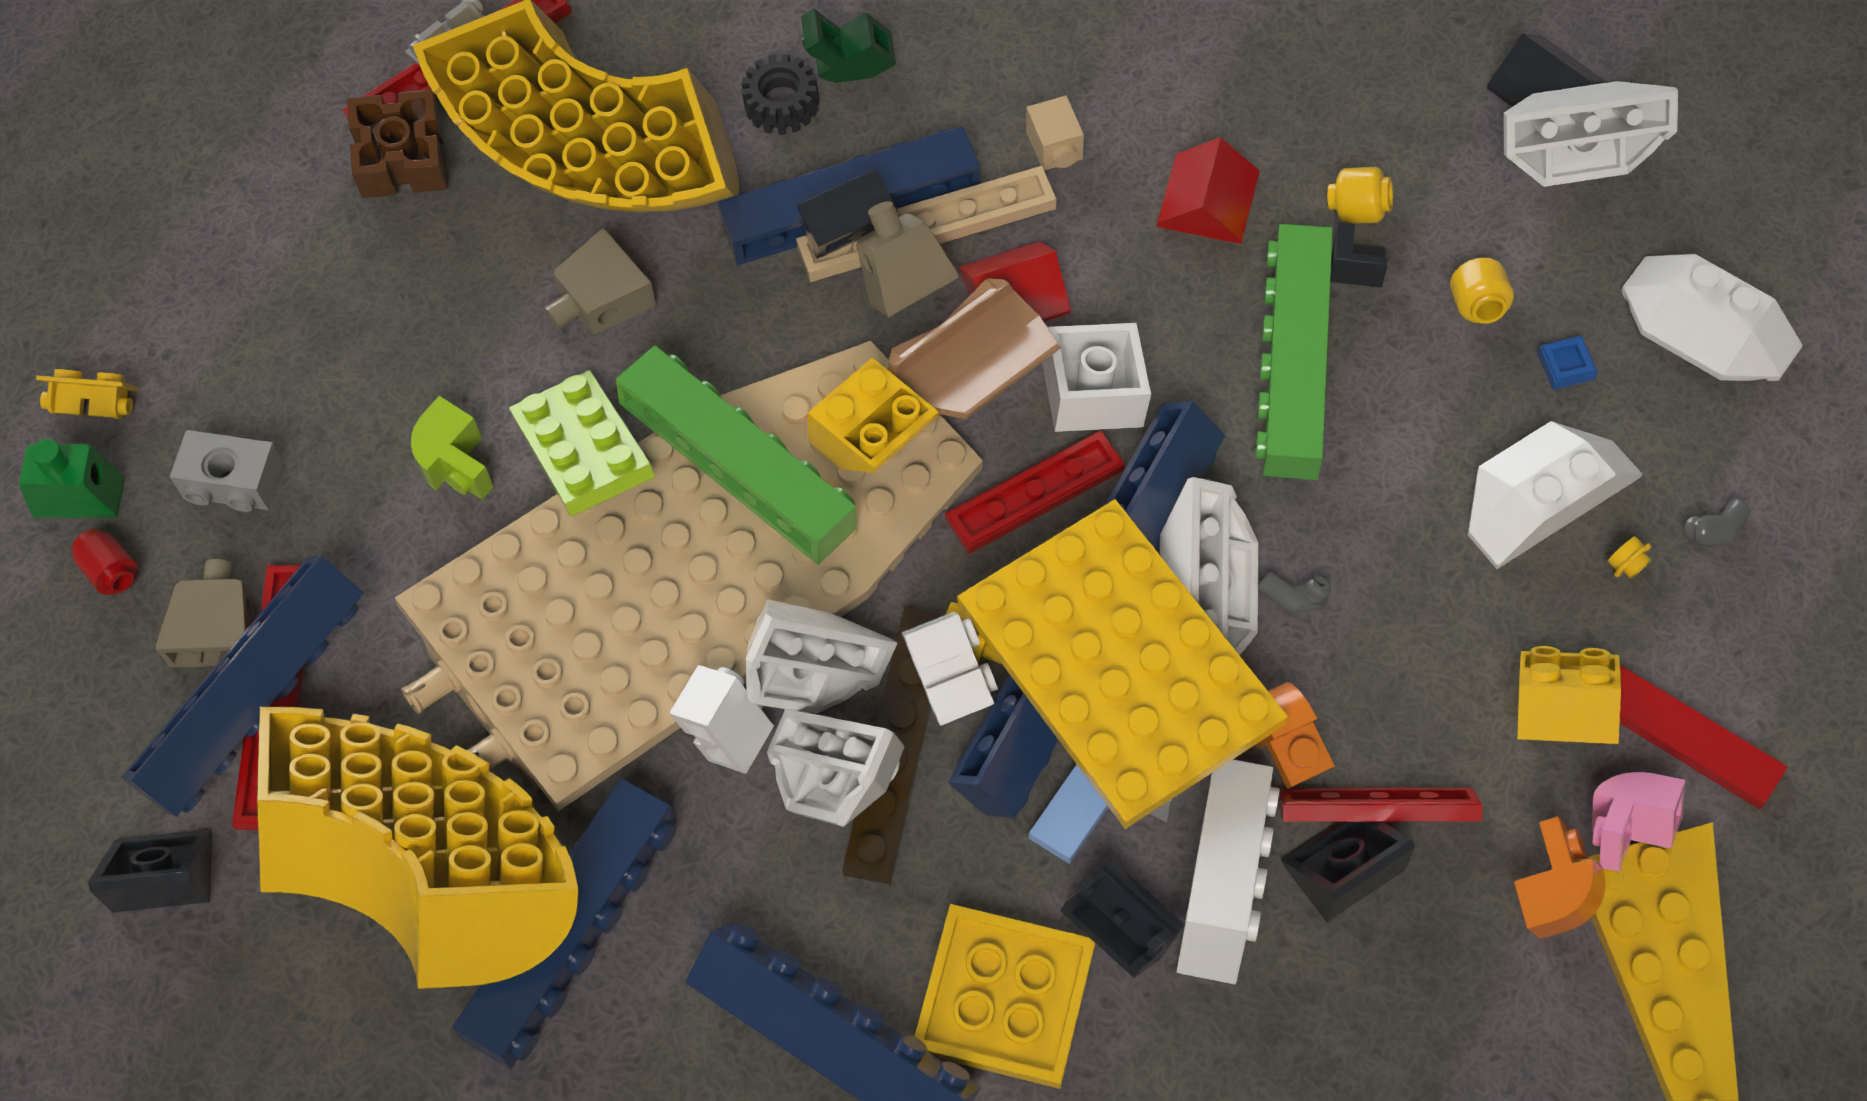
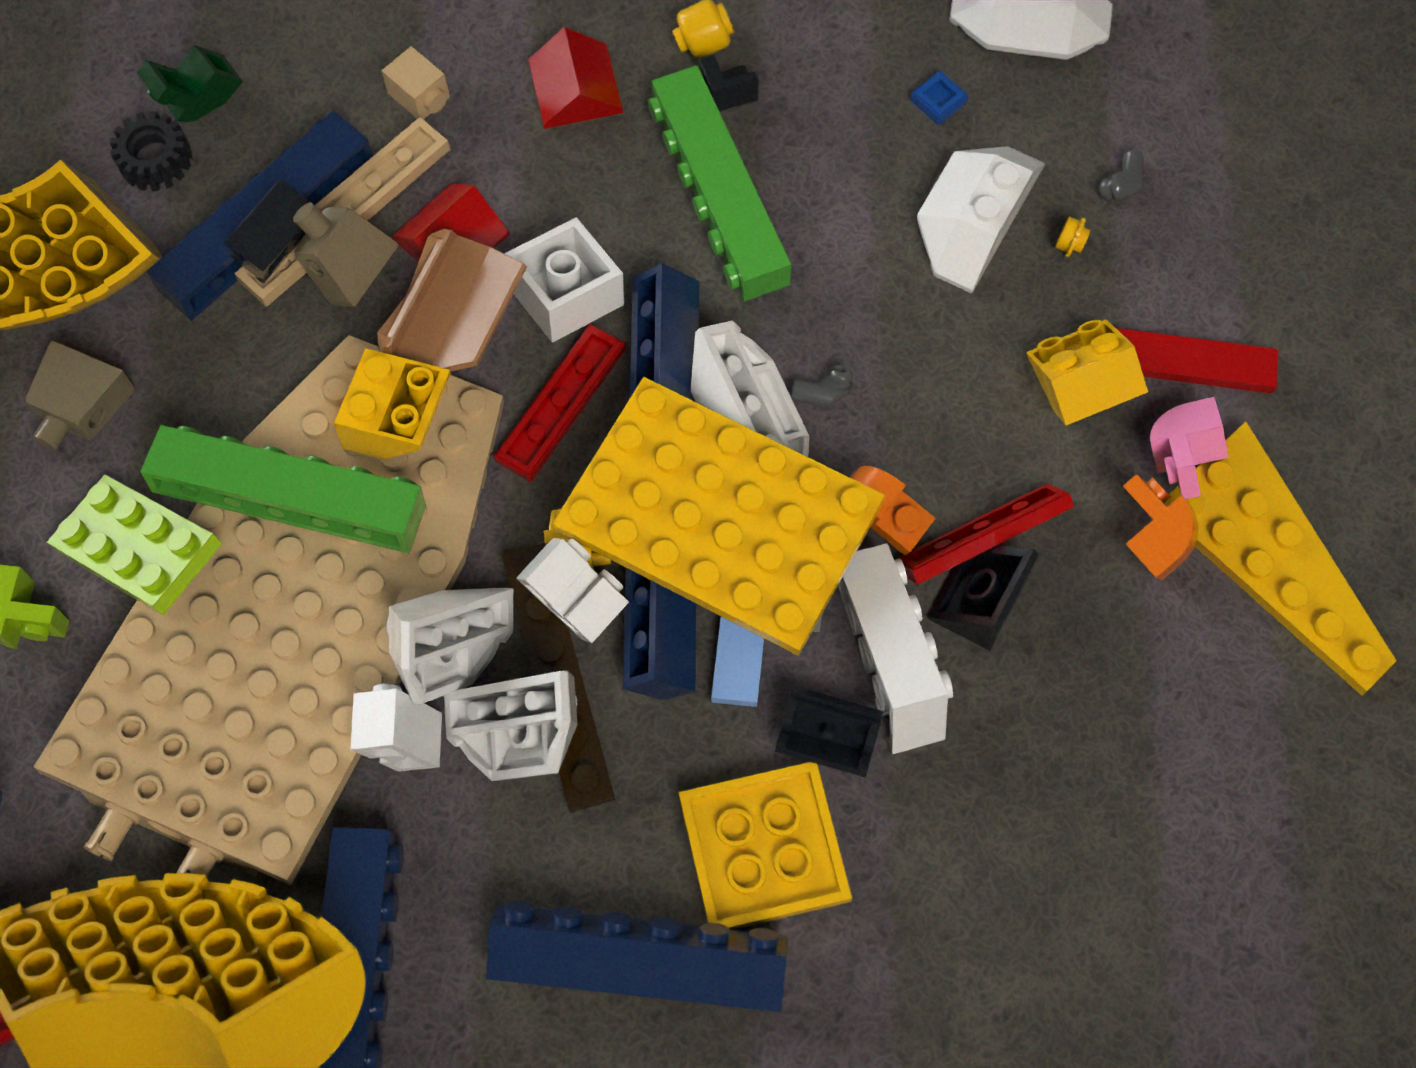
camera: 30 degrees left, 5 degrees up
(1481, 290) = (843, 67): yellow head -> none

